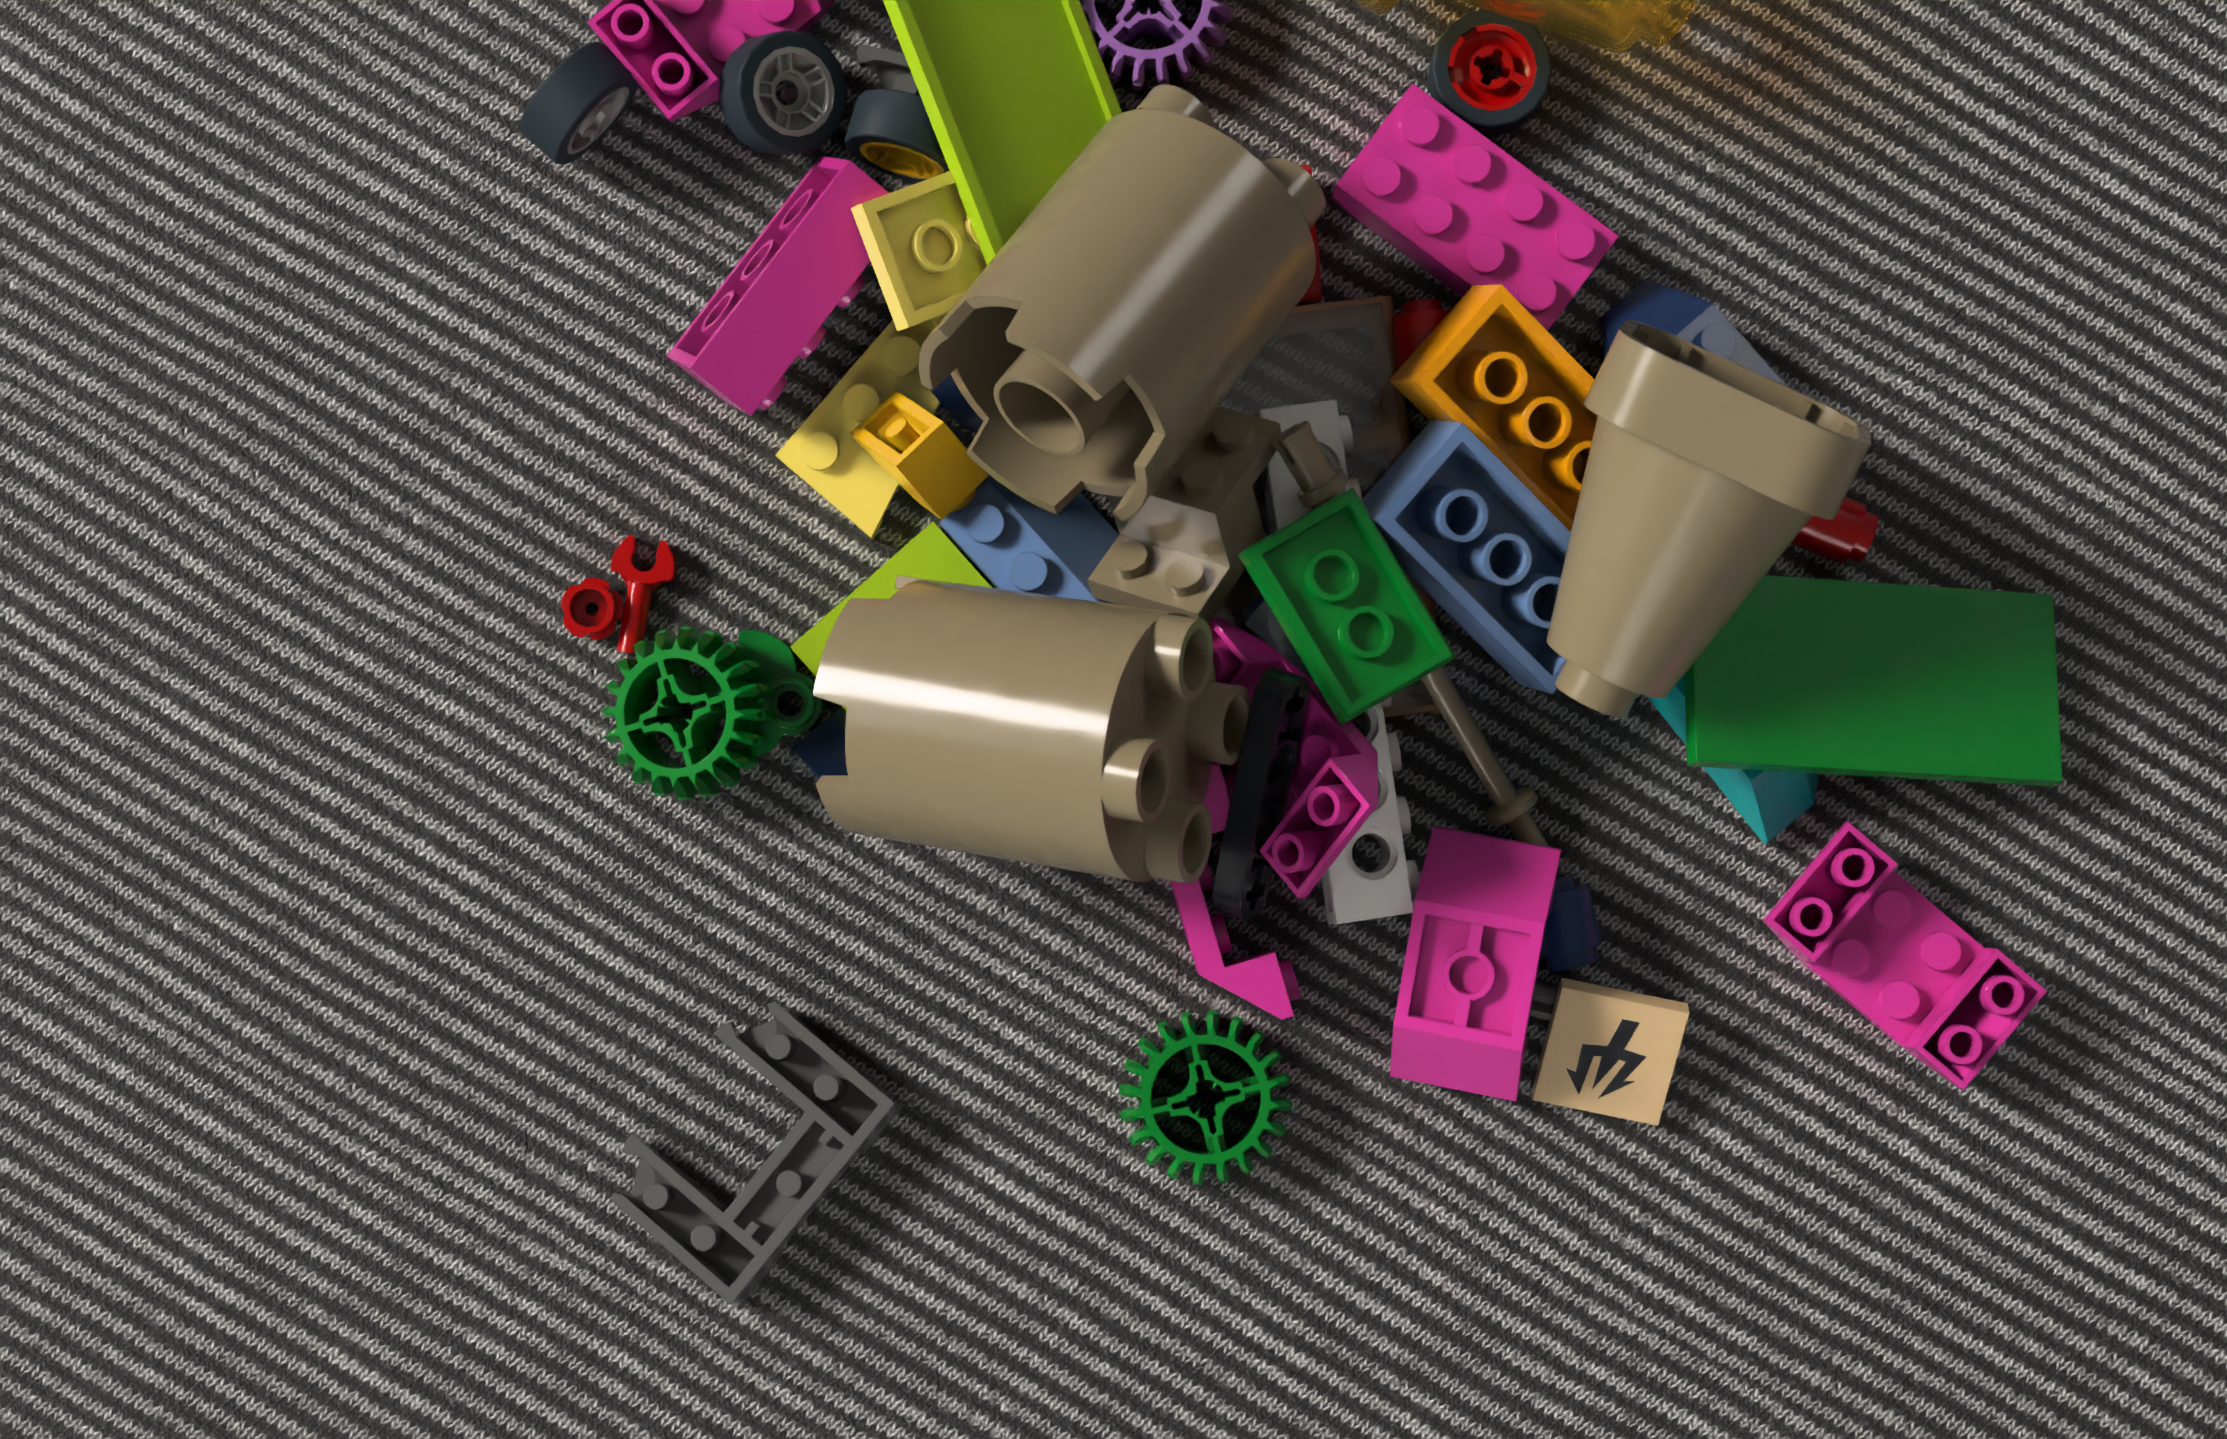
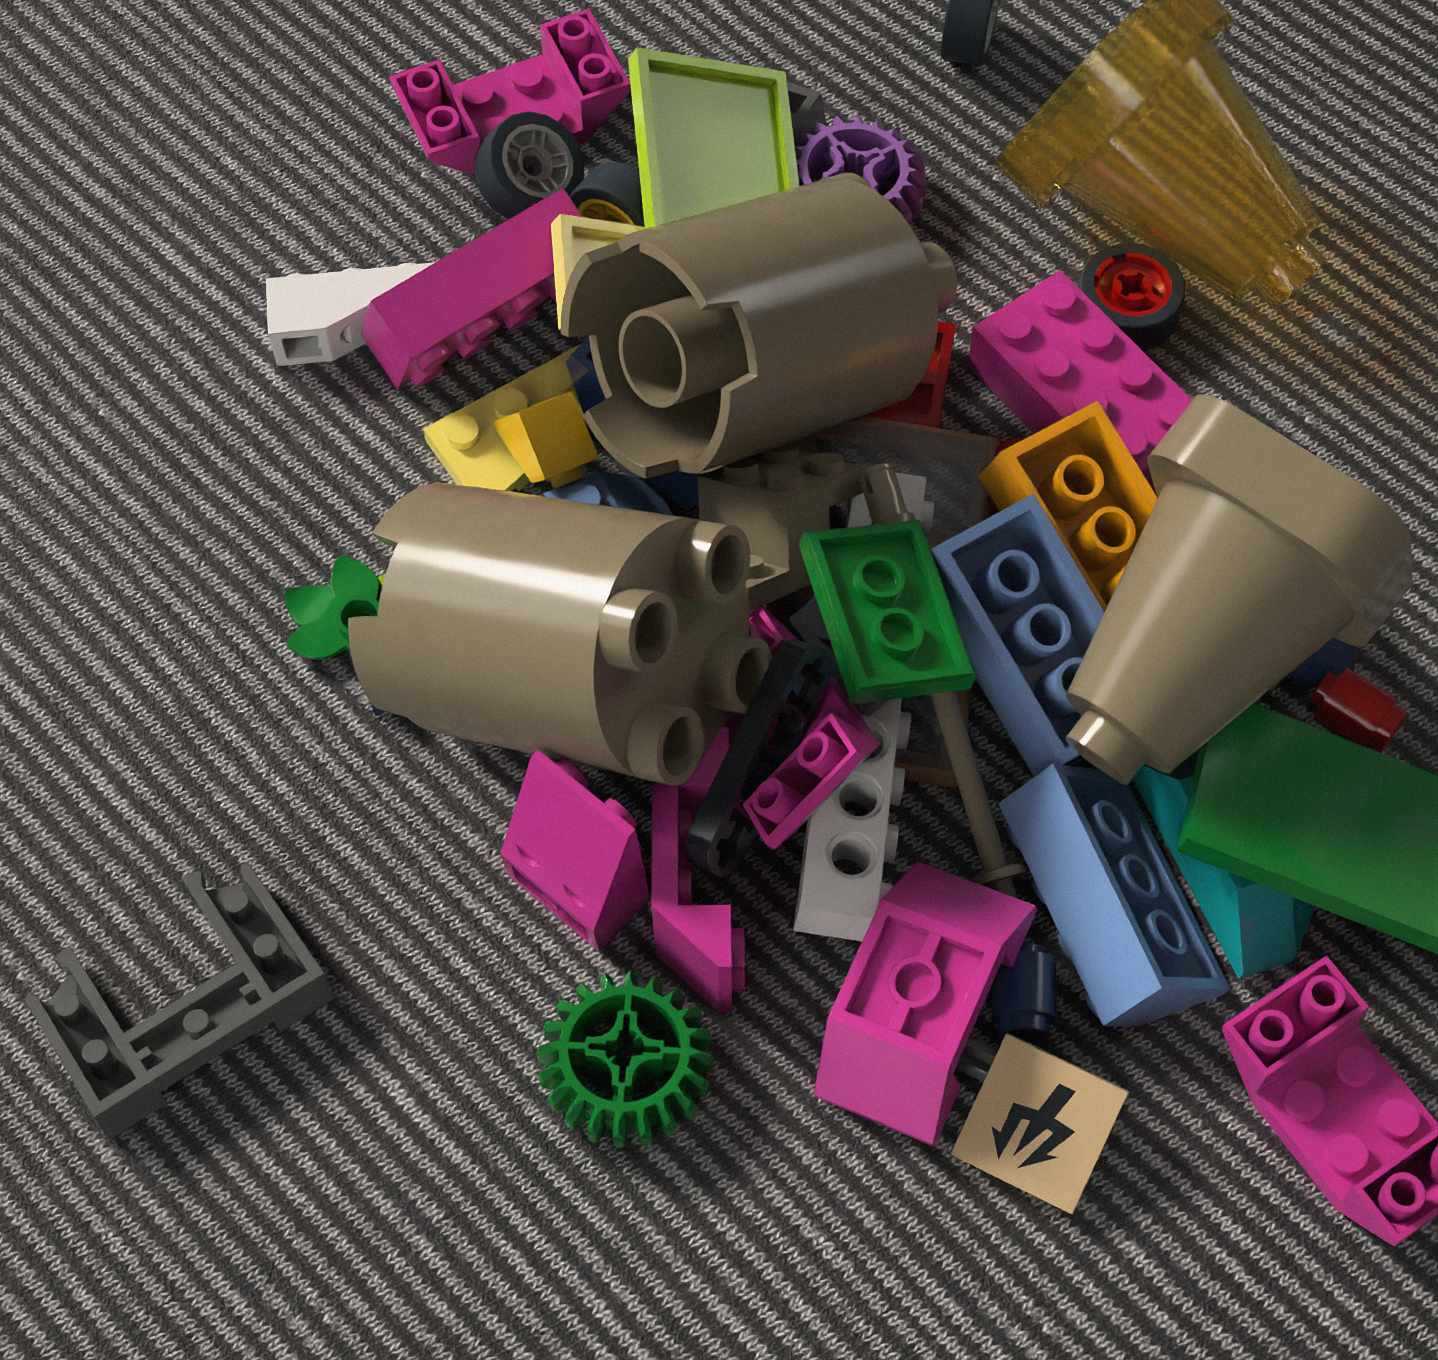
camera: 15 degrees right, 25 degrees down
(578, 103) = (360, 135): black wheel -> none
(579, 597) = (217, 494): red plate -> none
(627, 340) = (323, 313): none -> white slope
(640, 588) = (268, 503): red bar -> none
(668, 667) = (279, 607): green gear -> none
(1102, 924) = (575, 852): none -> dark pink slope
(1629, 807) = (1111, 896): none -> medium blue slope

